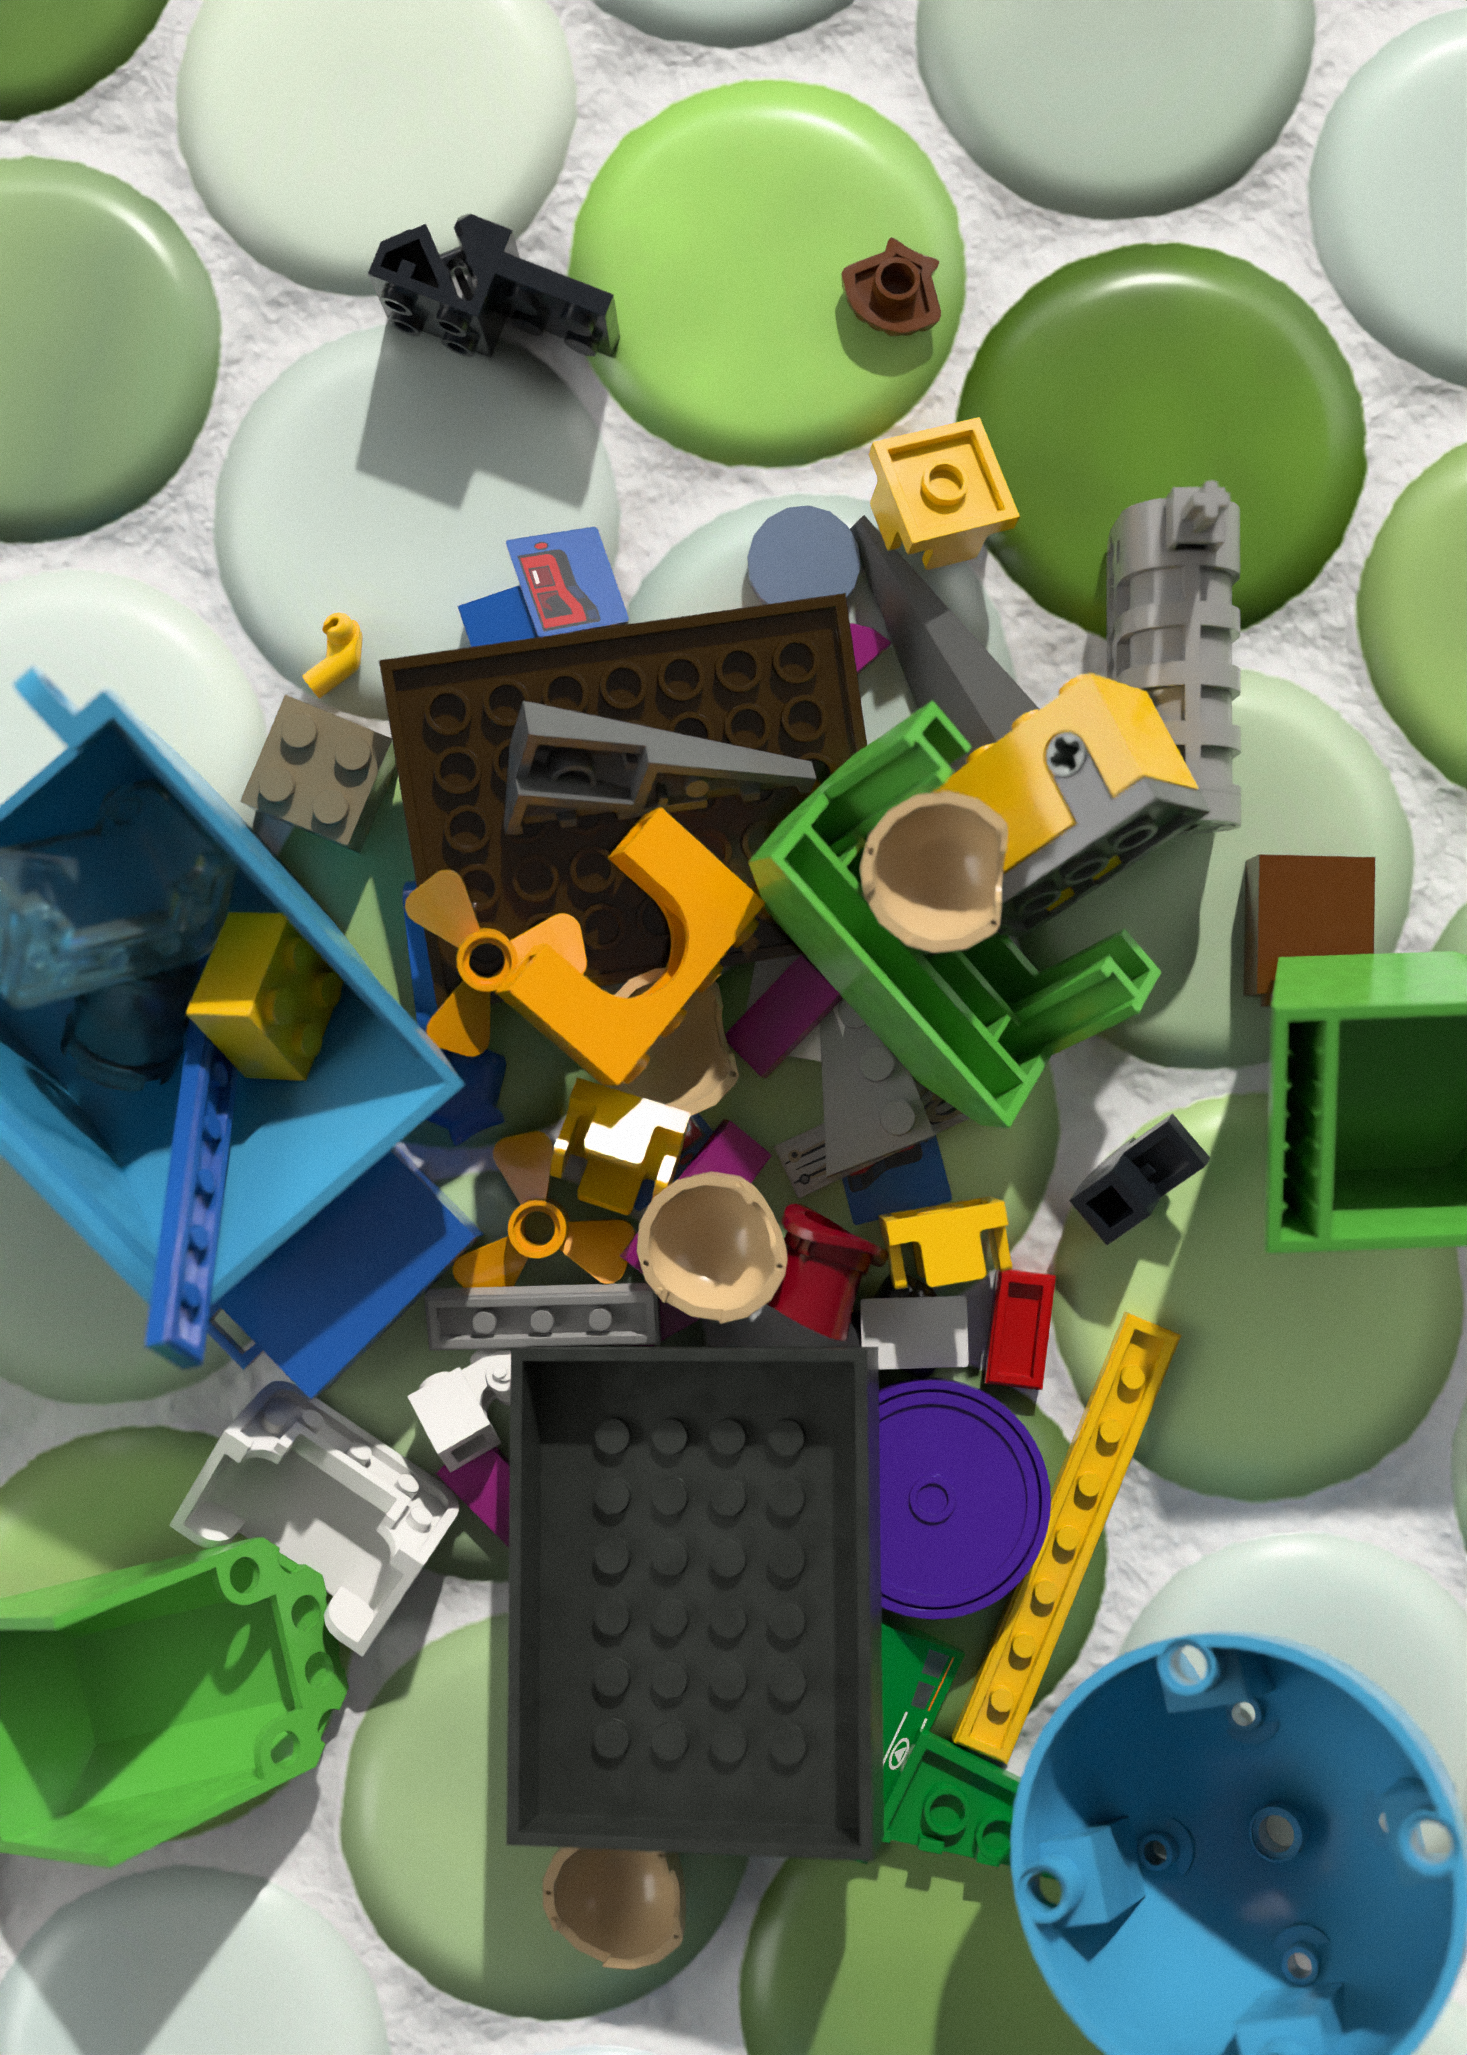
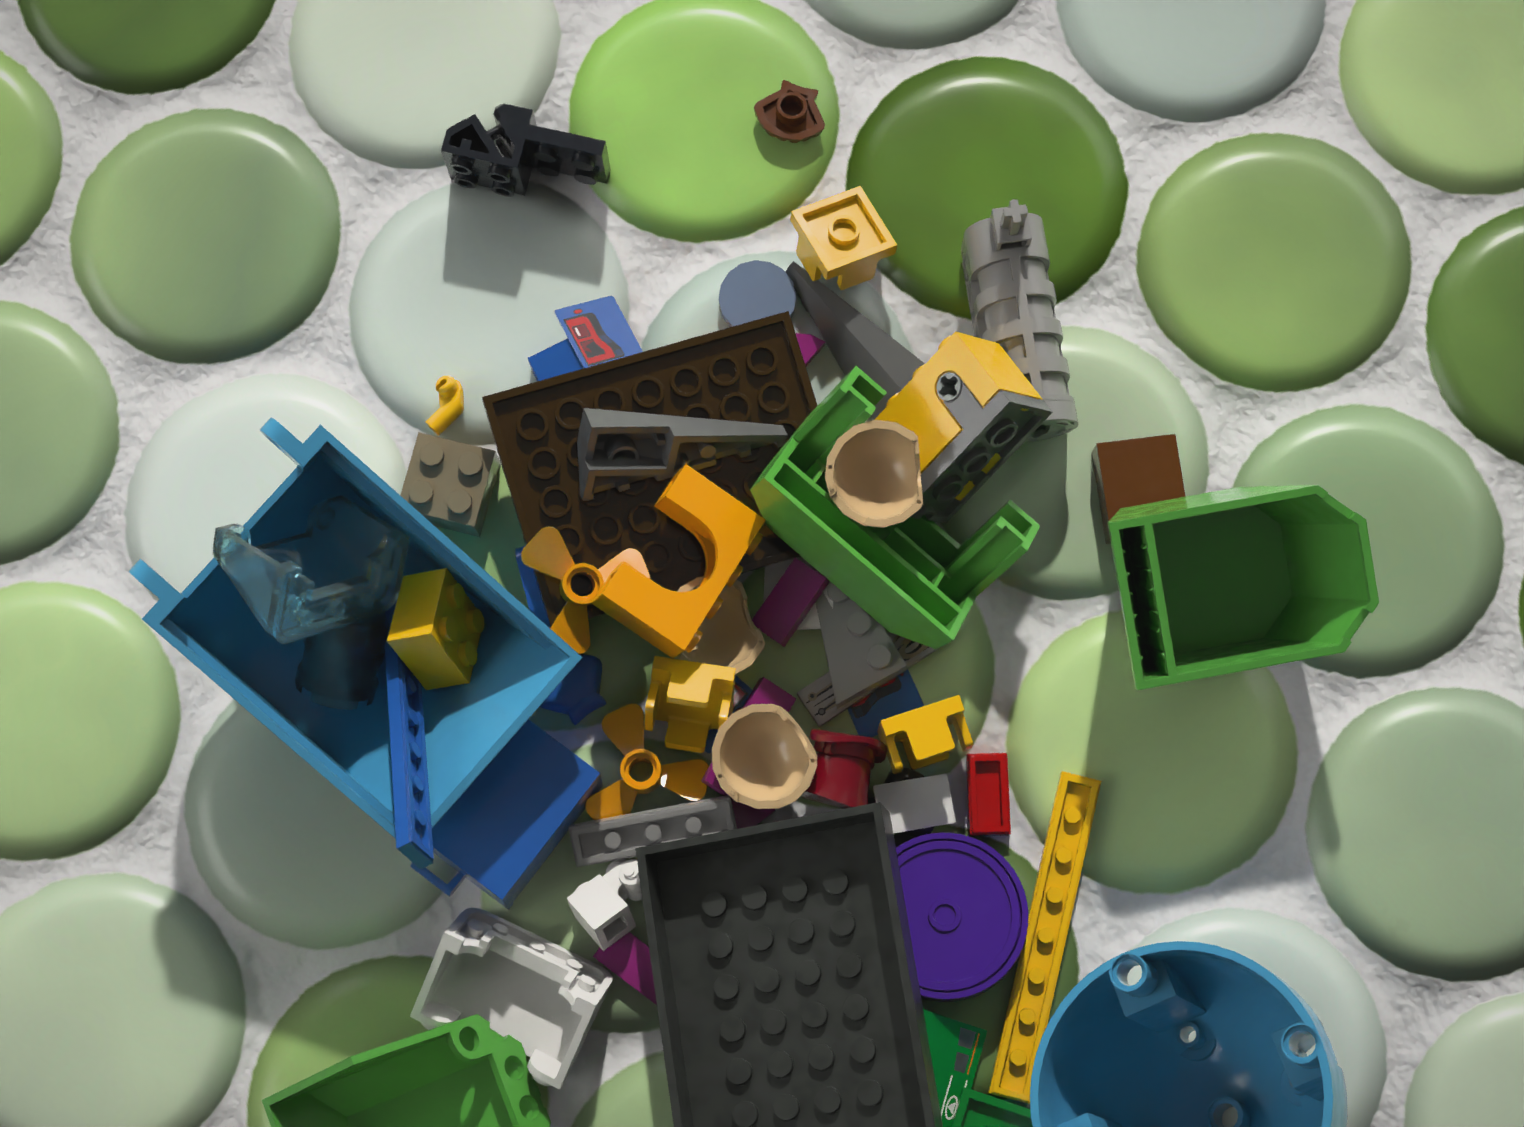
camera: 10 degrees left, 10 degrees down
(1136, 1176) = (1052, 673): black brick -> none

